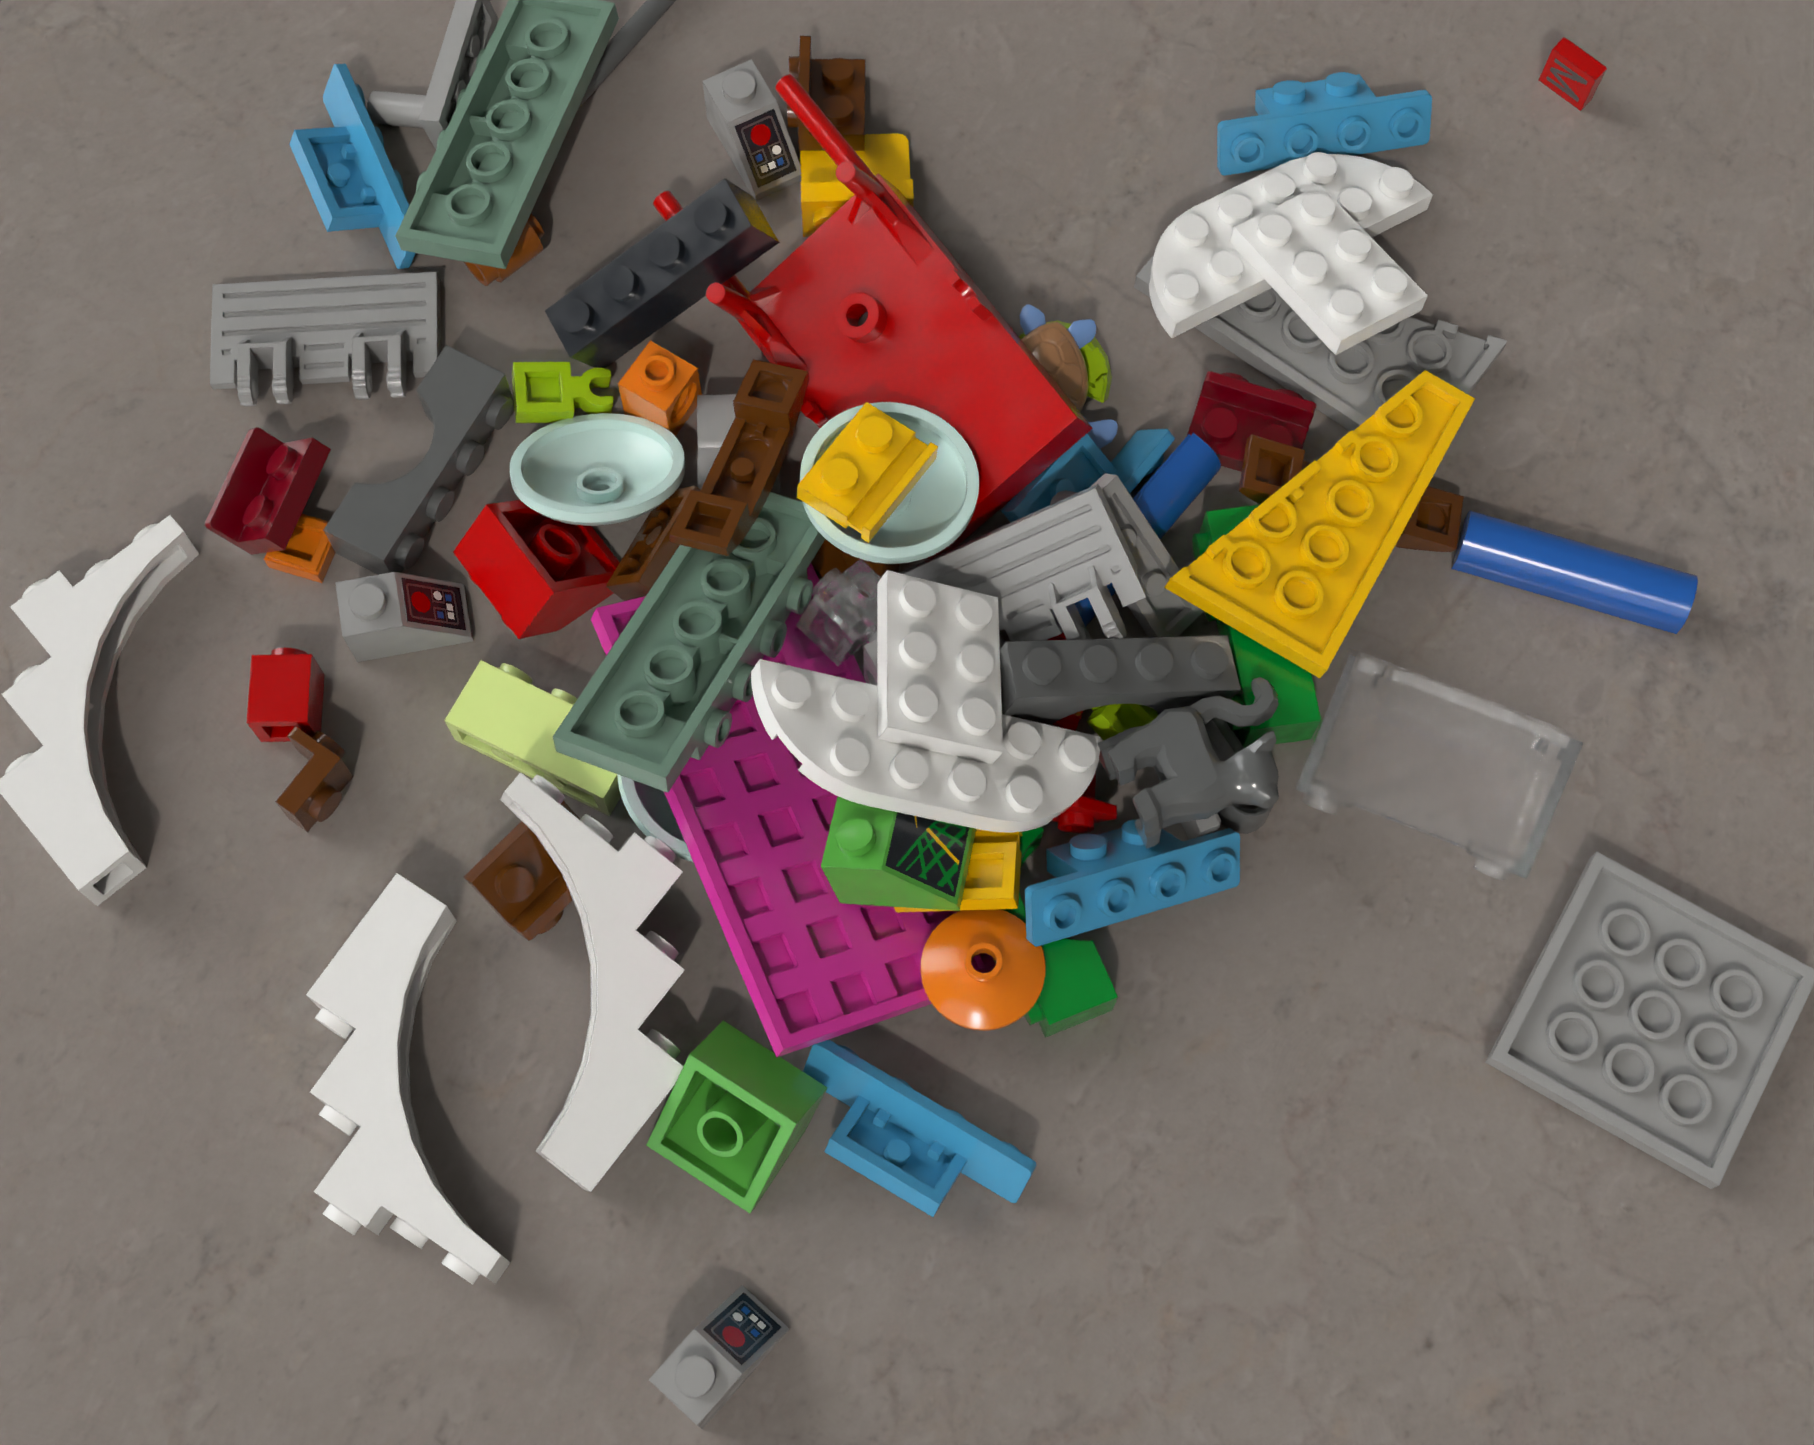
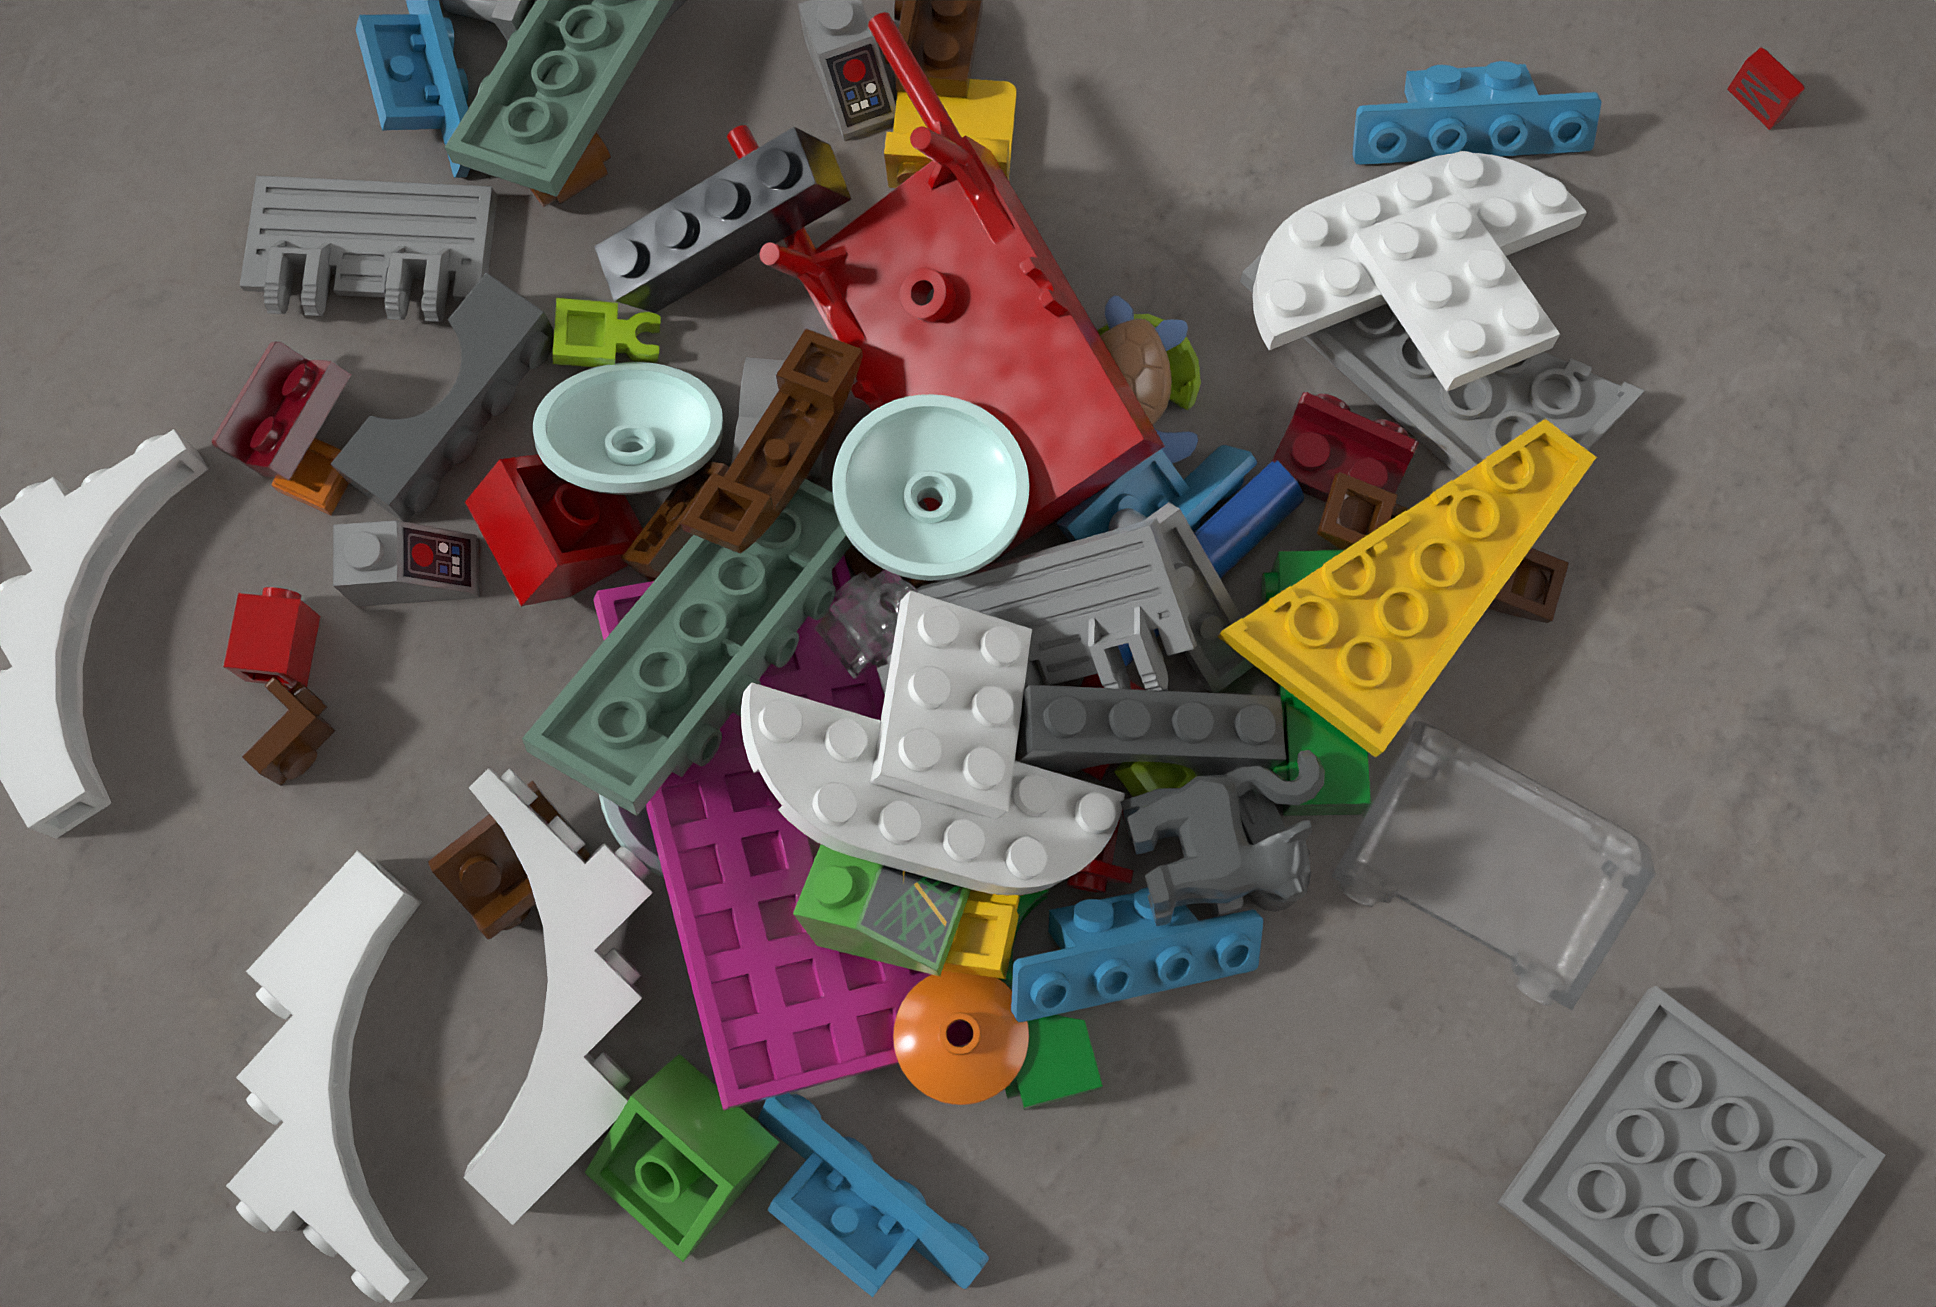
camera: 15 degrees right, 5 degrees up
(516, 726) = (504, 694): yellowish green brick -> none
(660, 388) = (709, 344): orange brick -> none
(866, 472) = (905, 474): yellow plate -> none
(1575, 572) = (1682, 663): blue brick -> none

